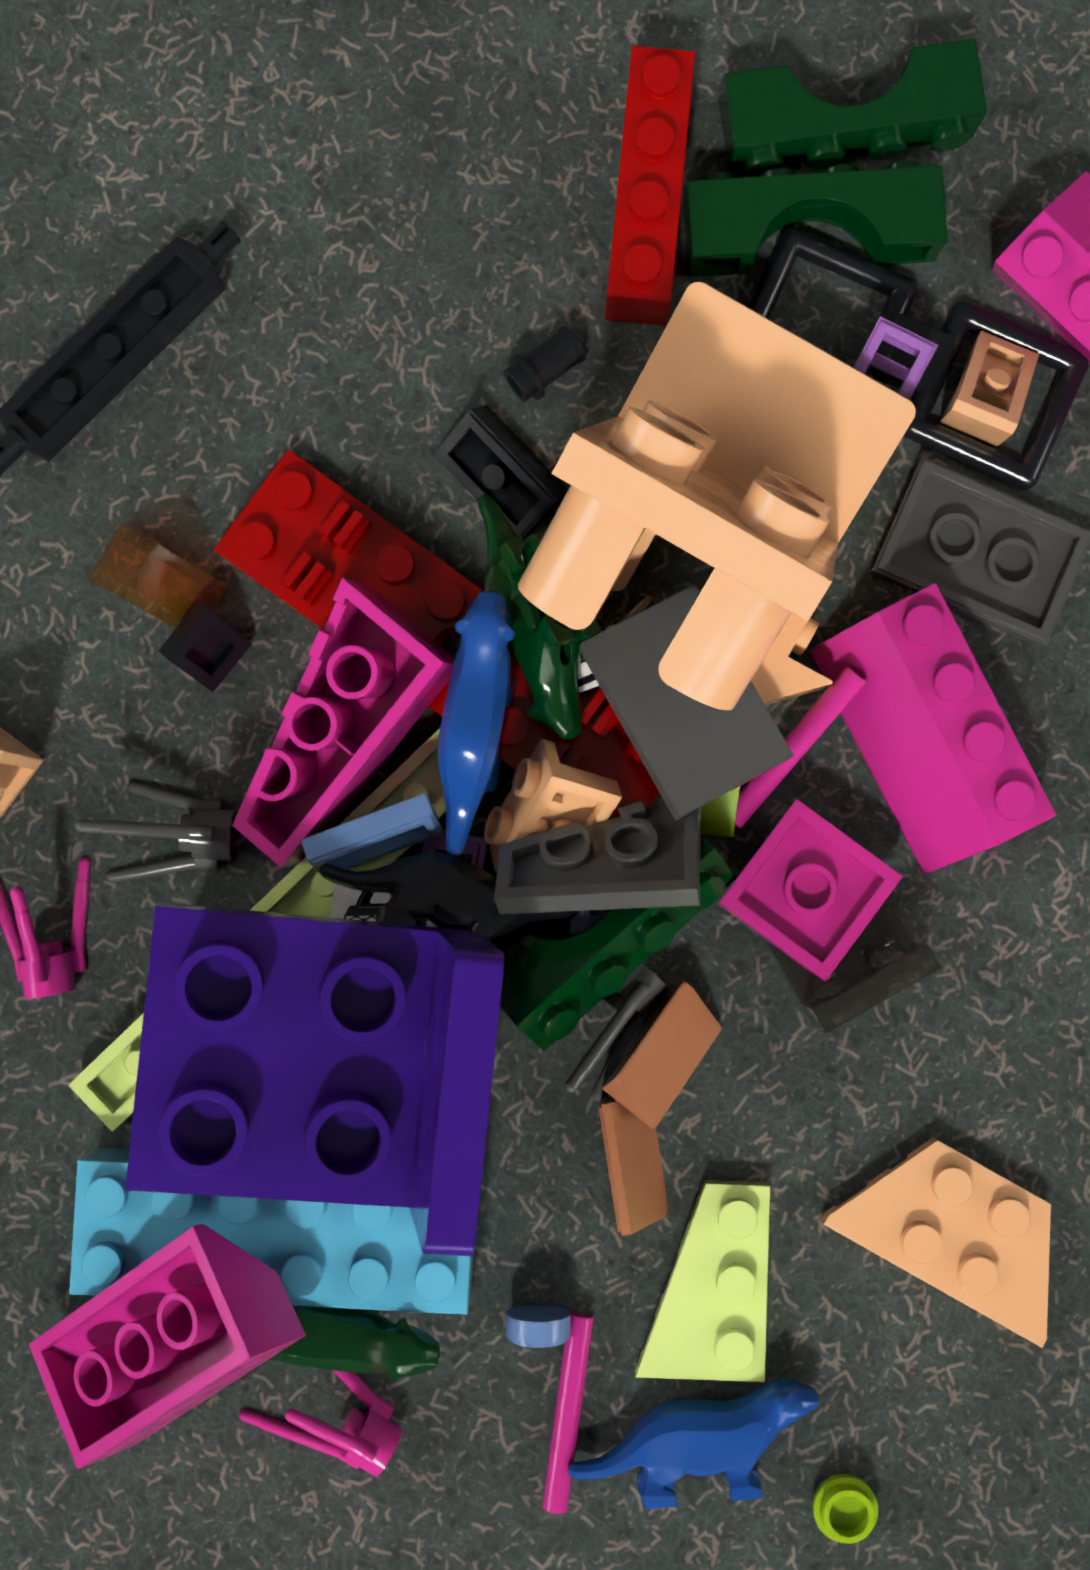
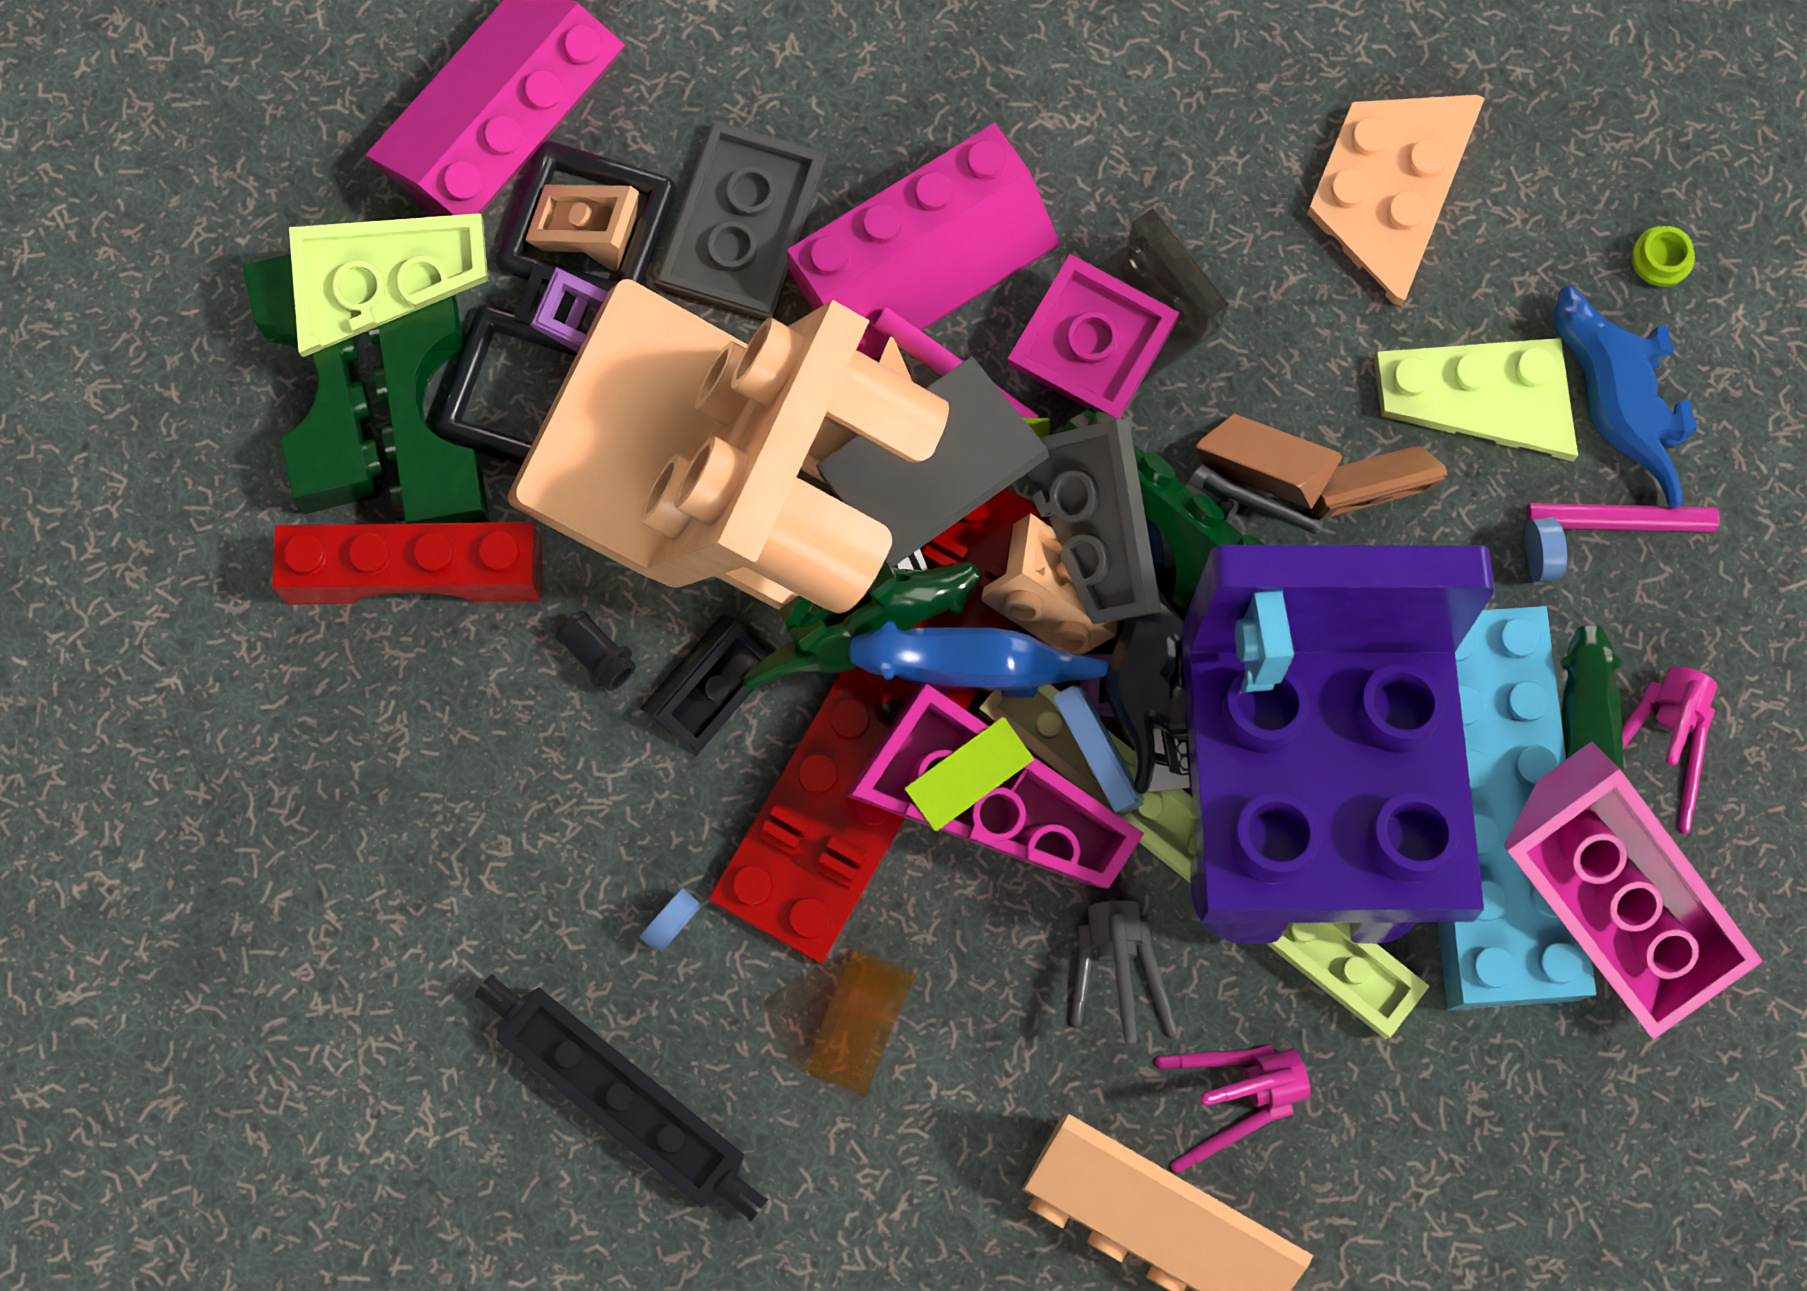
camera: 105 degrees left, 10 degrees down
(205, 647) = (924, 956): black plate -> none
(269, 410) = (670, 921): none -> medium blue tile
(351, 697) = (969, 774): none -> lime sticker
(405, 997) = (1264, 641): none -> medium azure plate
(951, 166) = (379, 271): none -> yellowish green wing

